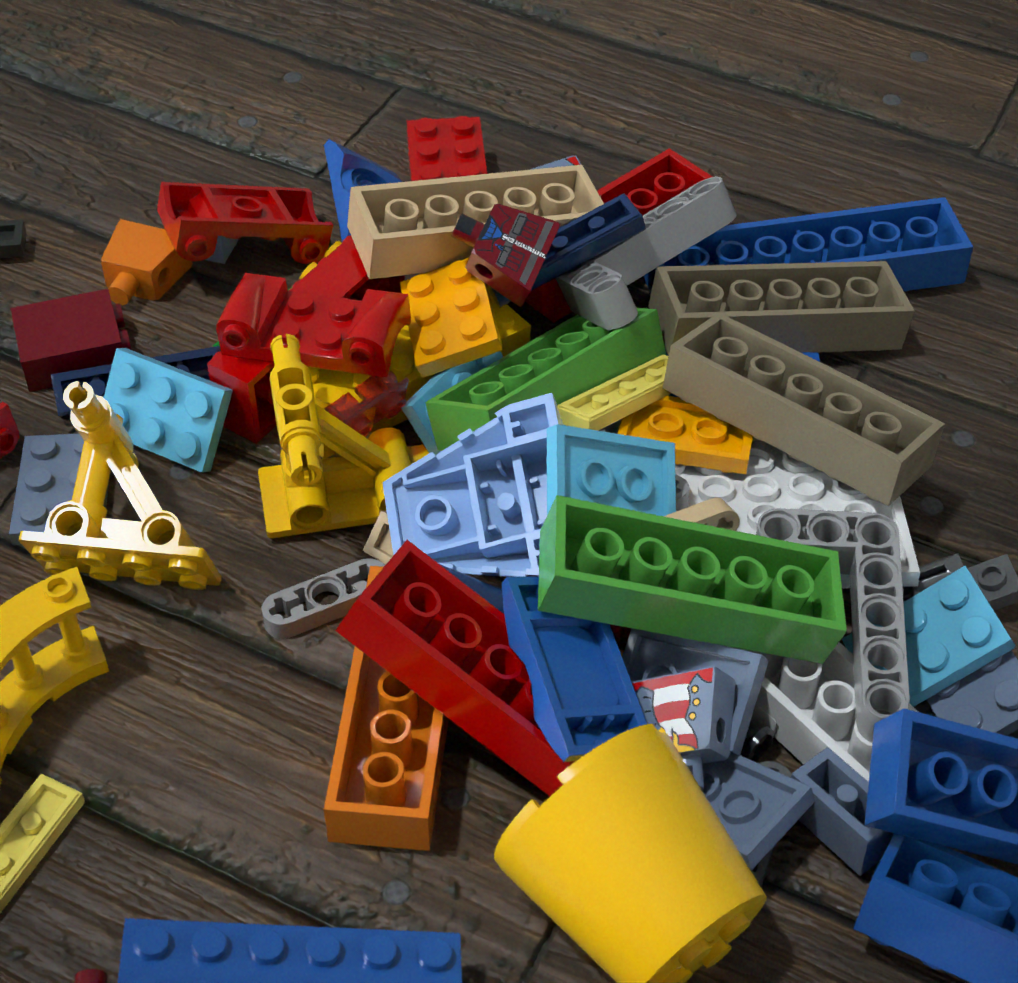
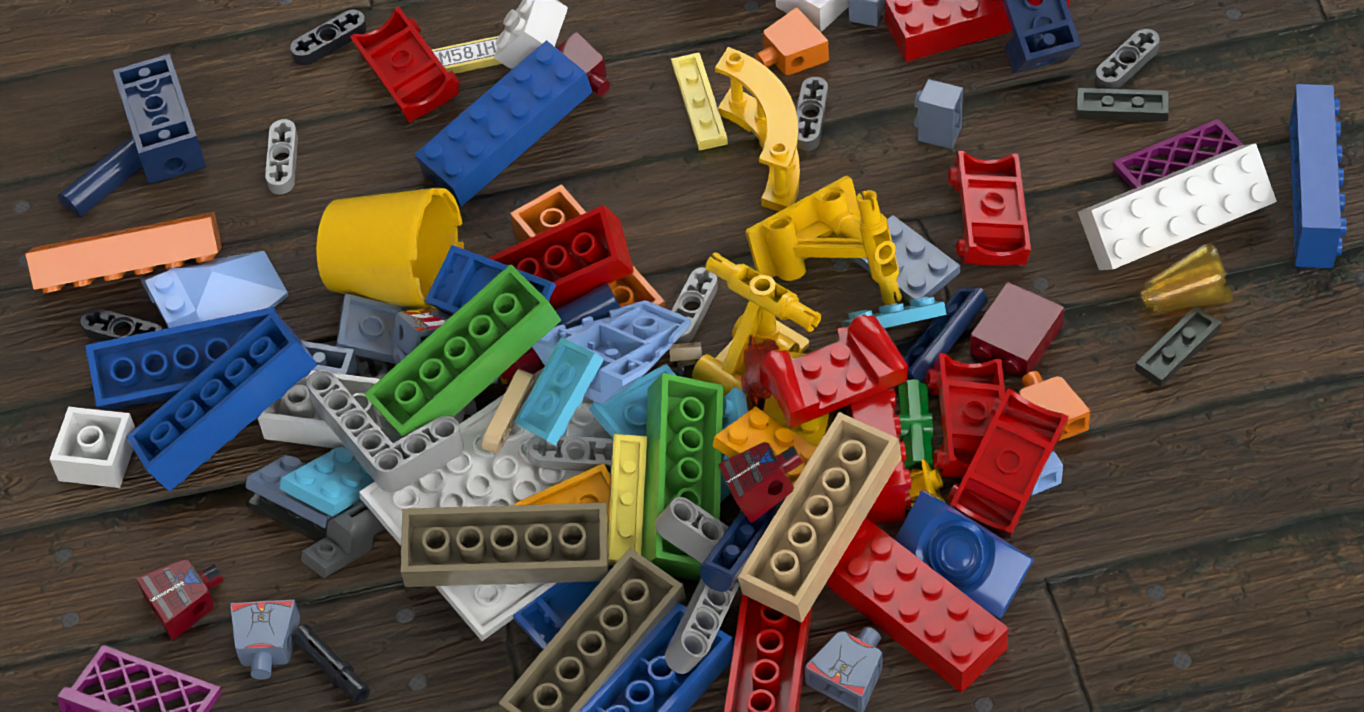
camera: 145 degrees right, 5 degrees up
(183, 307) = (965, 406): none -> red piece

